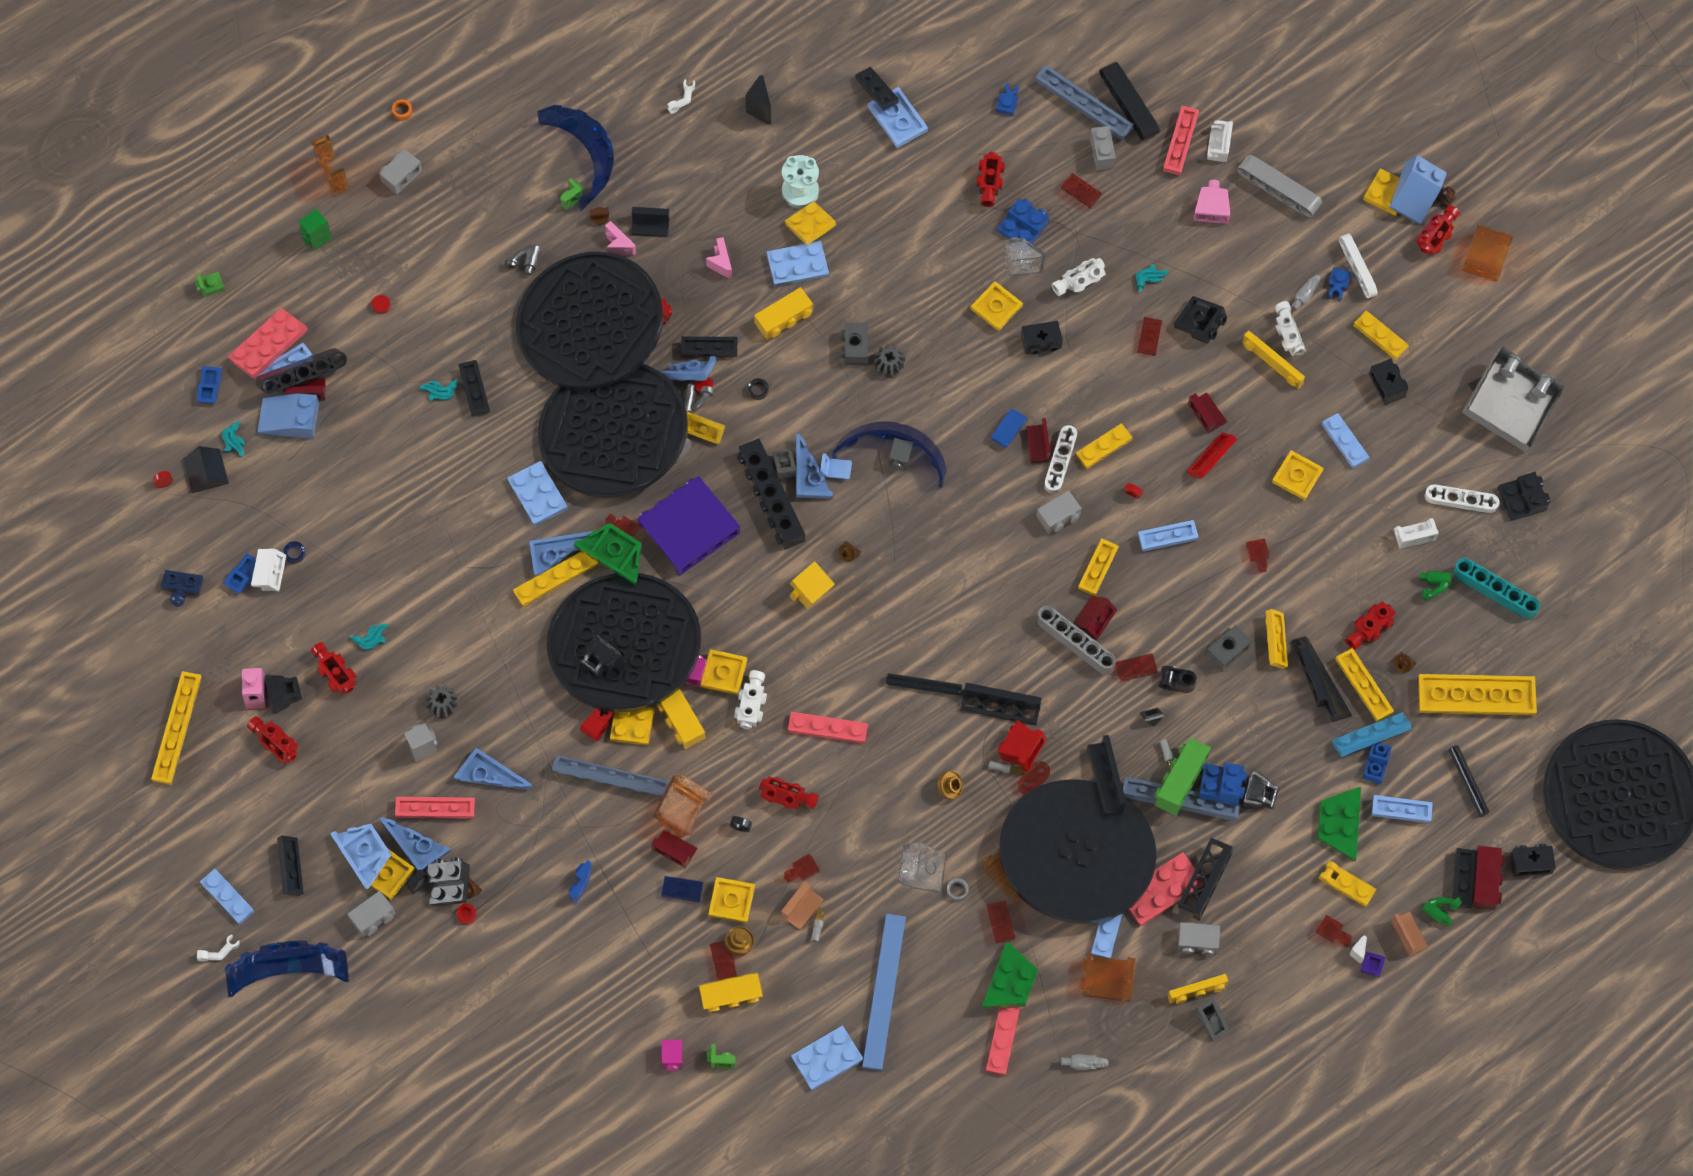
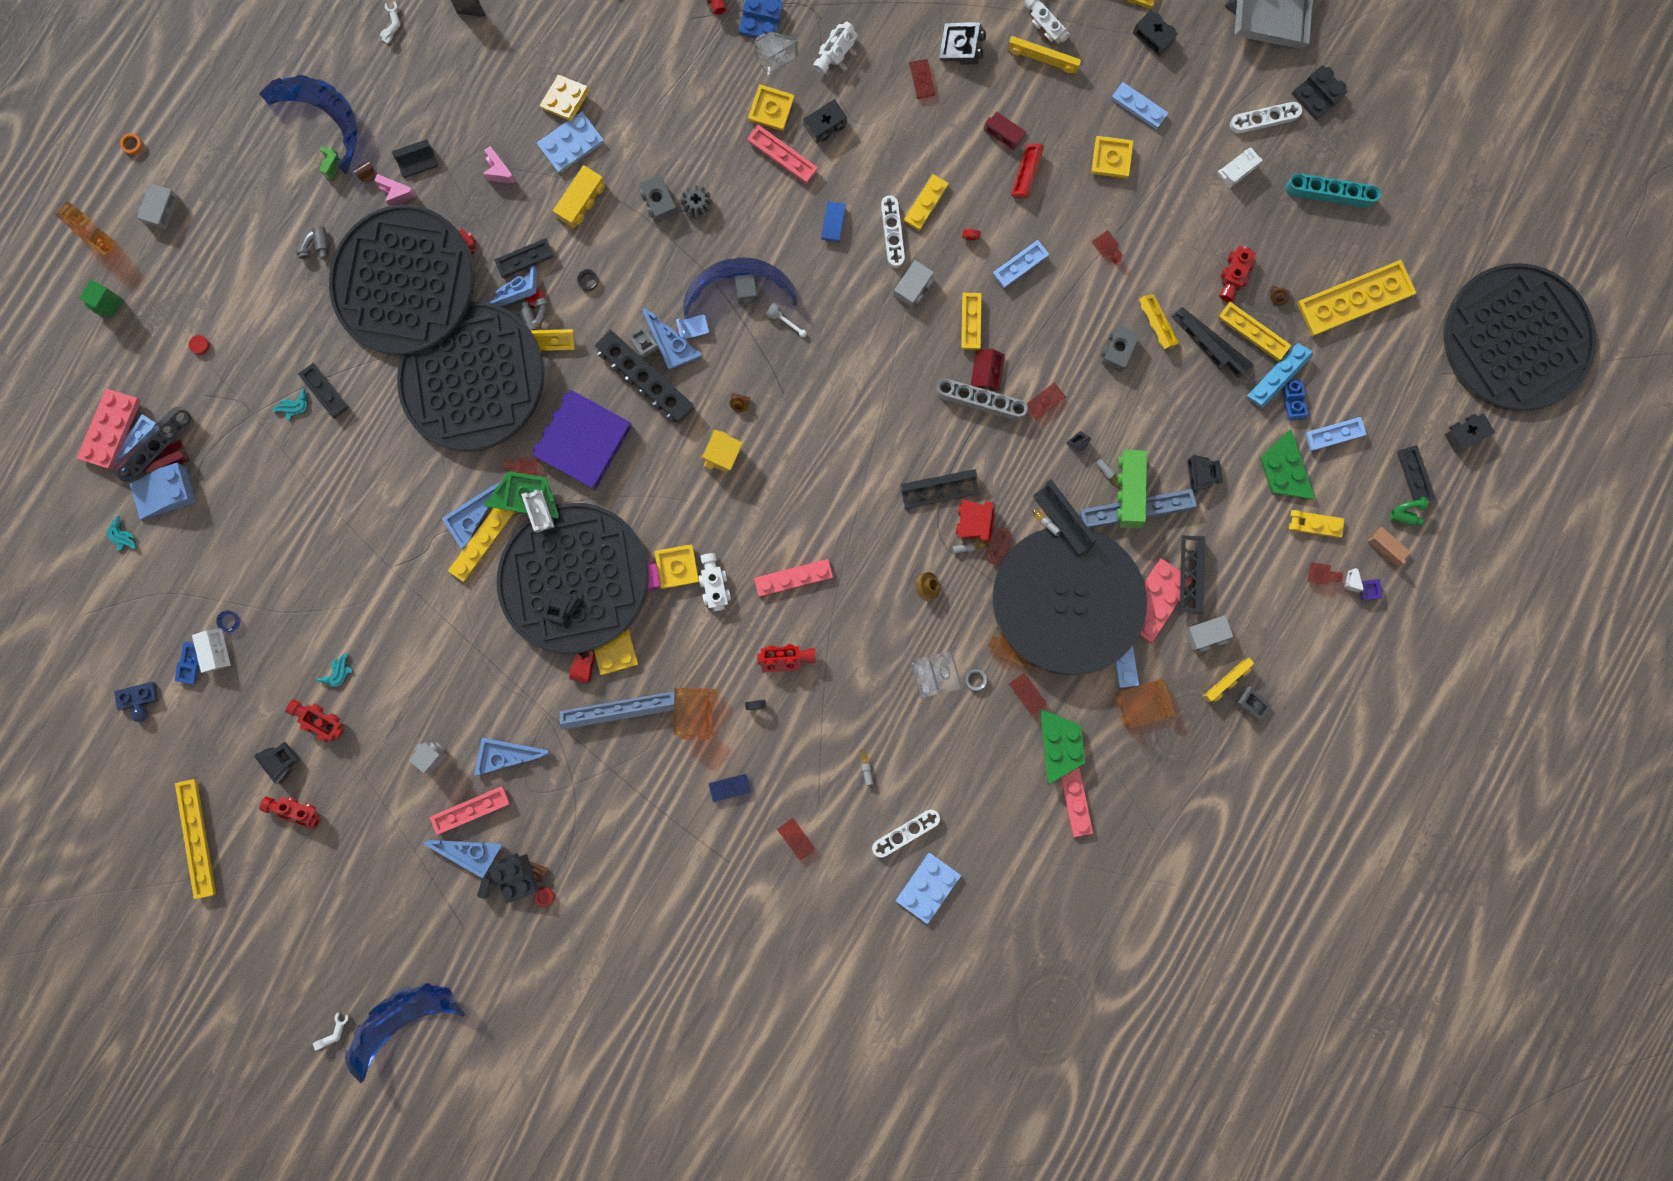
camera: 25 degrees left, 15 degrees up
(162, 479) = (70, 604): red tile -> none
(205, 469) = (107, 576): black slope -> none
(209, 284) = (27, 393): bright green bracket -> none
(209, 385) = (73, 492): blue slope -> none
(227, 896) = (316, 977): light blue plate -> none
(254, 685) = (249, 770): bright pink torso -> none
(290, 865) = (361, 924): black plate -> none
(363, 851) = (423, 884): light blue wing -> none
(371, 914) = (457, 937): light grey brick -> none
(392, 876) = (454, 891): yellow plate -> none
(441, 708) = (423, 706): dark grey gear -> none
(537, 493) = (428, 467): light blue plate -> none
(583, 876) = (634, 815): blue slope -> none
(620, 567) = (537, 511): none -> white hinge
(672, 1055) = (789, 948): dark pink brick -> none
(674, 848) = (705, 752): dark red panel -> none
(682, 720) = (658, 629): yellow brick -> none
(720, 1061) = (838, 932): bright green bracket -> none
(730, 991) = (815, 866): yellow brick -> none
(731, 900) = (778, 779): yellow plate -> none
(739, 941) = (802, 815): pearl gold plate -> none
(800, 181) = (537, 60): light aqua piece -> none
(801, 906) = (844, 757): nougat panel -> none
(803, 868) = (830, 720): clear red plate -> none
(828, 995) = (907, 836): none -> white beam
(884, 992) = (952, 804): medium blue tile -> none
(917, 485) = (774, 312): none -> hinge
(923, 684) = (862, 499): black axle -> none
(988, 350) = (782, 154): none -> coral plate
(1038, 442) = (866, 223): dark red panel -> none
(1084, 1062) = (1157, 791): light grey piece -> none
(1088, 775) = (1046, 522): none -> light grey piece
(1151, 275) = (897, 19): teal piece -> none
(1176, 679) = (1083, 398): black piece -> none
(1223, 783) = (1170, 479): blue plate -> none
(1440, 578) = (1279, 201): green plant -> none
(1468, 780) = (1381, 381): black axle -> none
(1488, 877) = (1438, 465): dark red brick -> none

